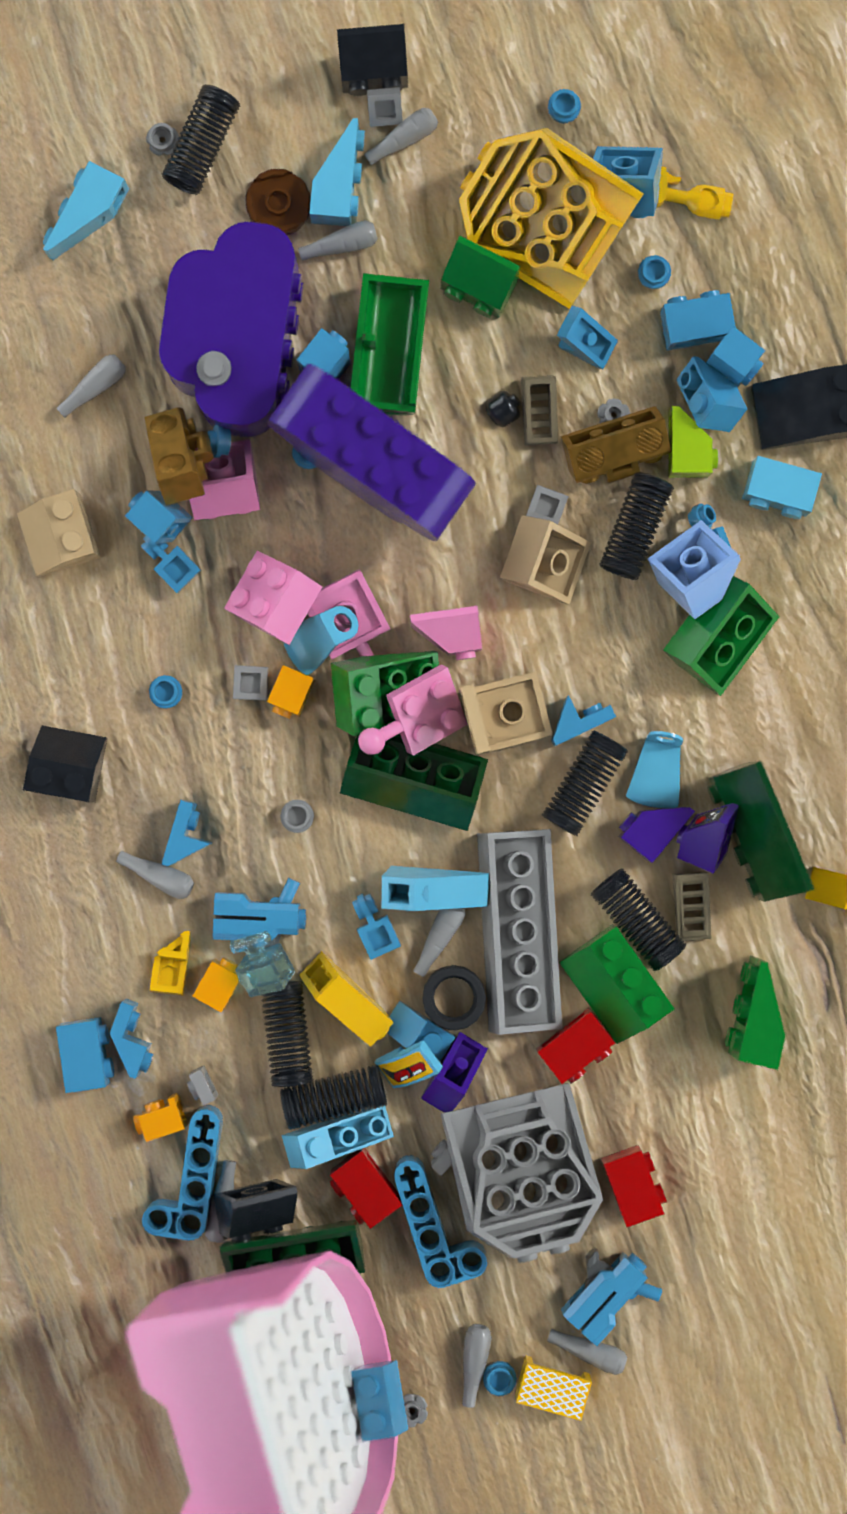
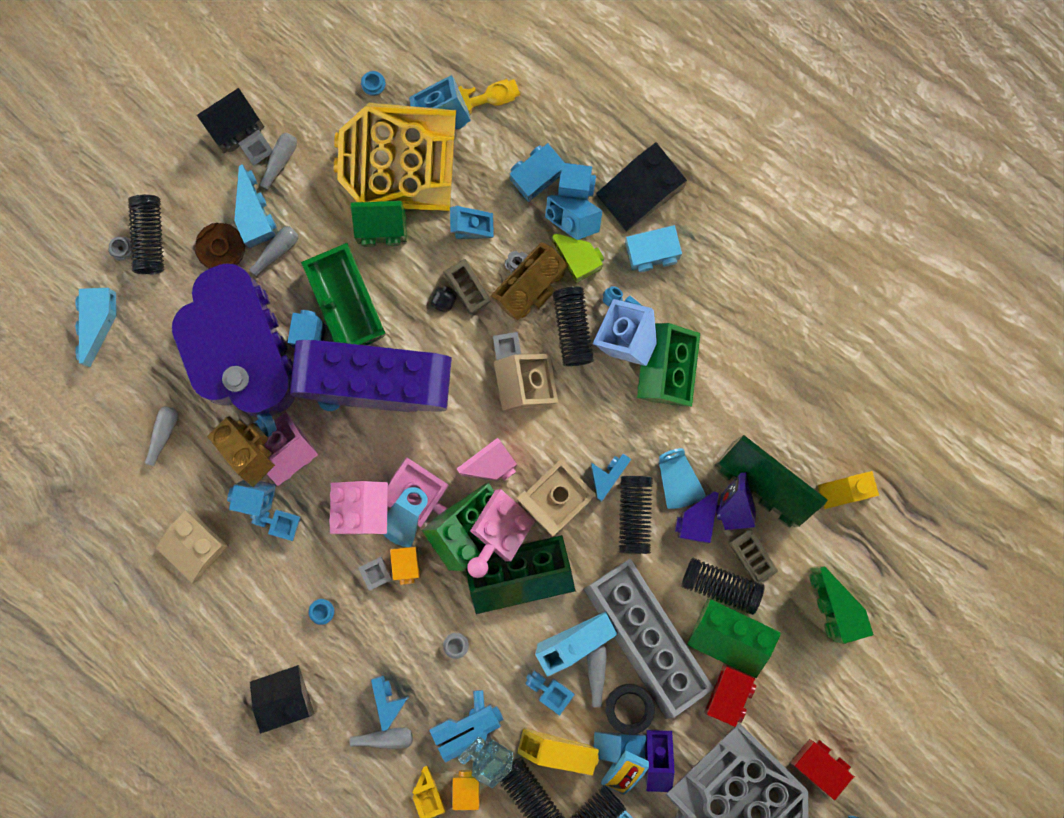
camera: 30 degrees left, 5 degrees down
(654, 272) = (491, 156): dark azure plate -> none

